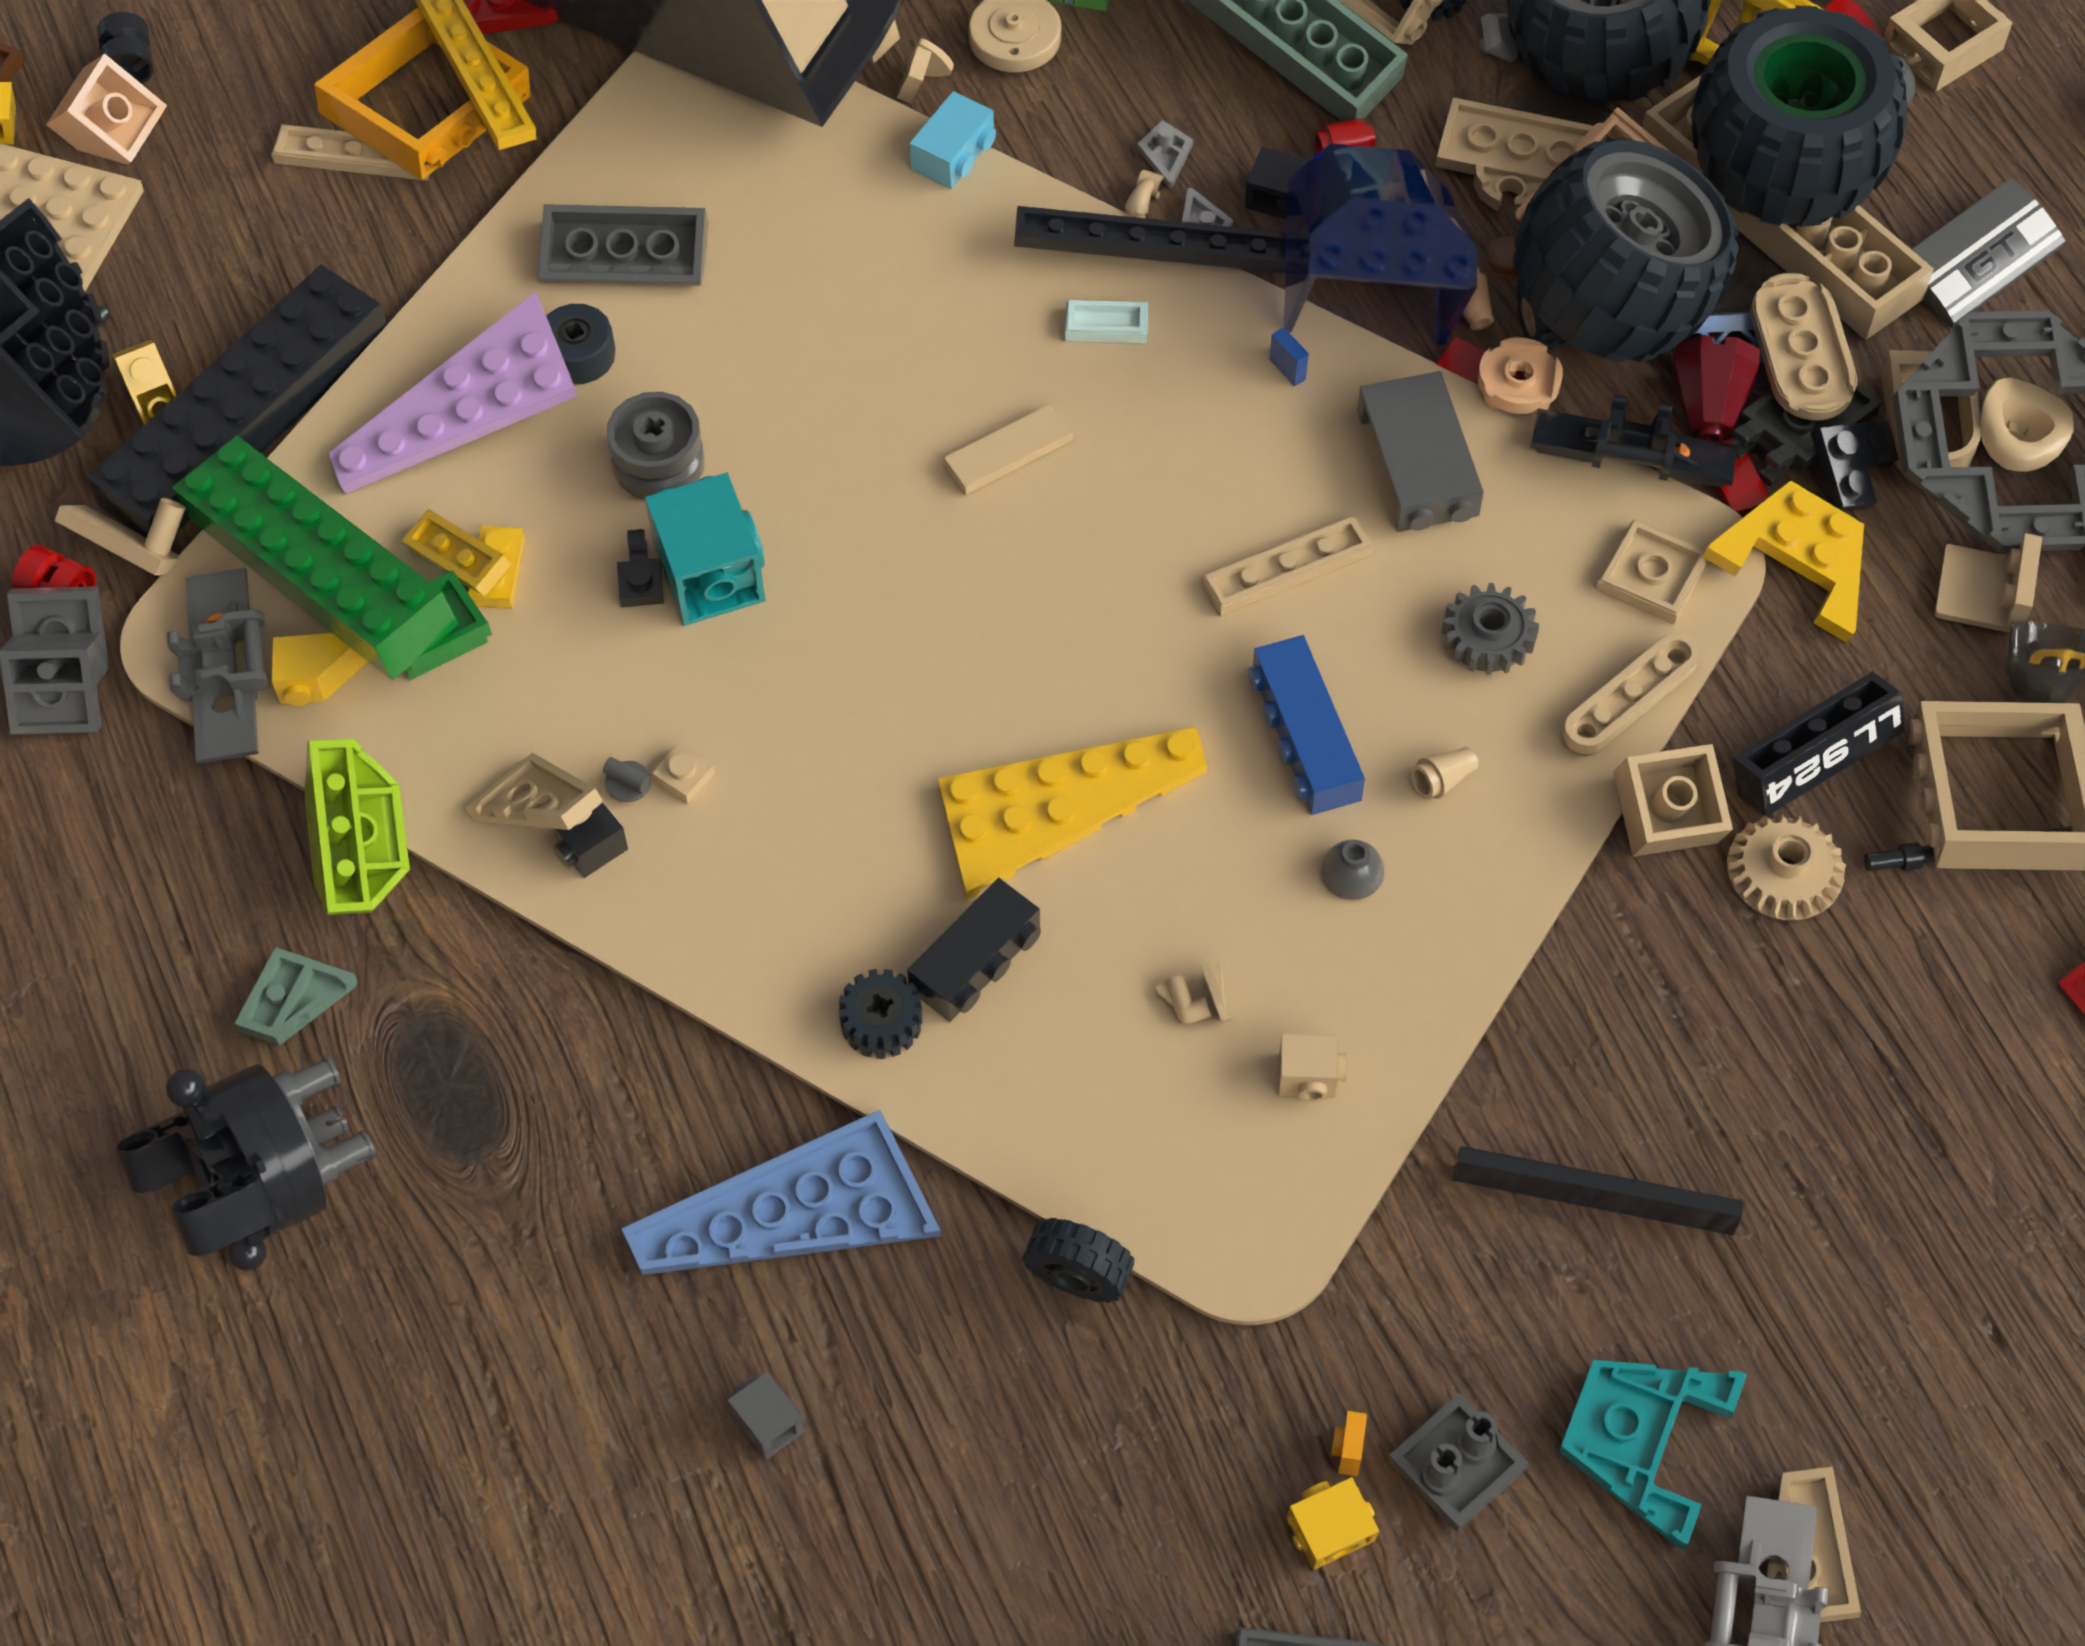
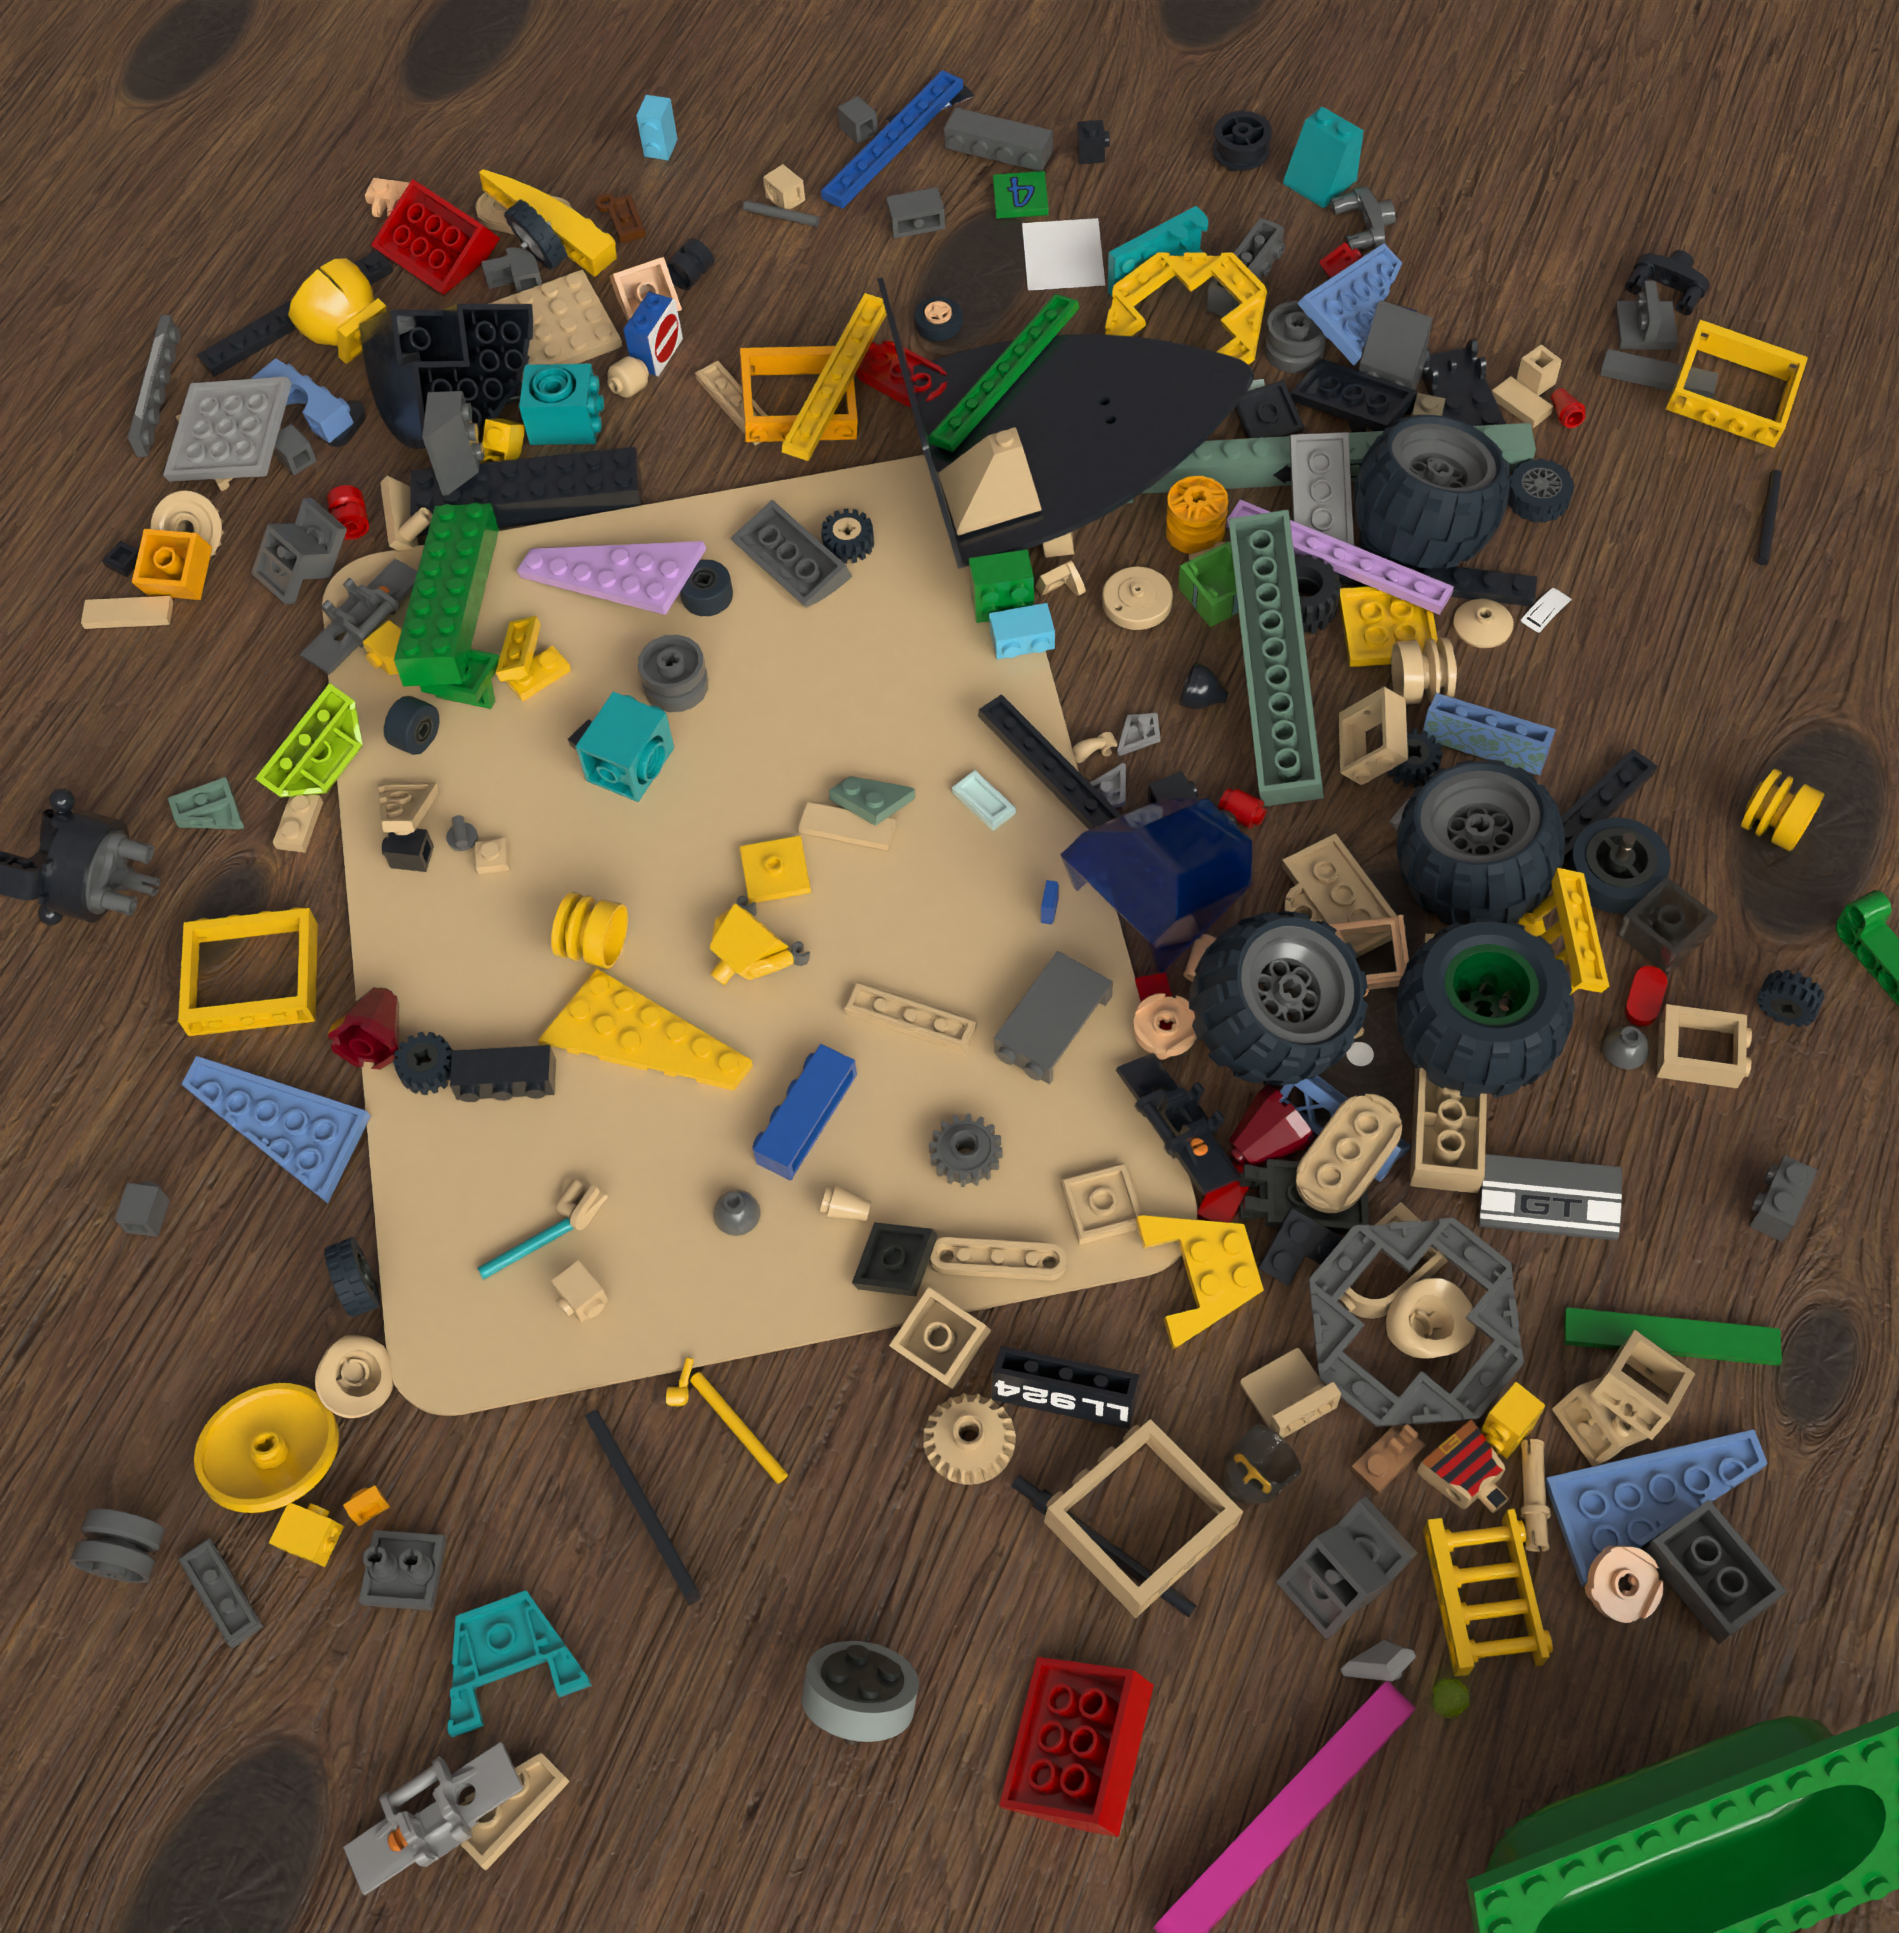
camera: 50 degrees right, 0 degrees up
(132, 388) = (451, 439): none -> dark grey slope
(172, 286) = (561, 404): none -> teal brick
(185, 142) = (654, 332): none -> piece
(203, 207) = (627, 376): none -> tan head
(414, 926) = (298, 823): none -> tan plate
(435, 718) = (411, 725): none -> black wheel
(617, 1147) = (256, 1013): none -> yellow window
(660, 180) = (837, 538): none -> black wheel
(790, 1030) = (368, 1030): none -> dark red cone
(889, 108) = (1000, 583): none -> green brick
(890, 746) = (589, 930): none -> yellow wheel
(990, 545) = (775, 869): none -> yellow plate
(1001, 404) = (871, 798): none -> sand green wing
(1063, 626) = (749, 945): none -> yellow torso
(1175, 66) = (1202, 689): none -> black helmet
(1196, 1488) = (266, 1448): none -> yellow dish
(1199, 1343) = (354, 1376): none -> tan hat
(1200, 1083) = (525, 1248): none -> teal bar
(1502, 1070) = (679, 1395): none -> yellow hand
(1553, 771) = (895, 1259): none -> pearl dark grey plate
(1585, 1049) = (738, 1428): none -> yellow bar
(1985, 1136) = (859, 1691): none -> light grey wheel

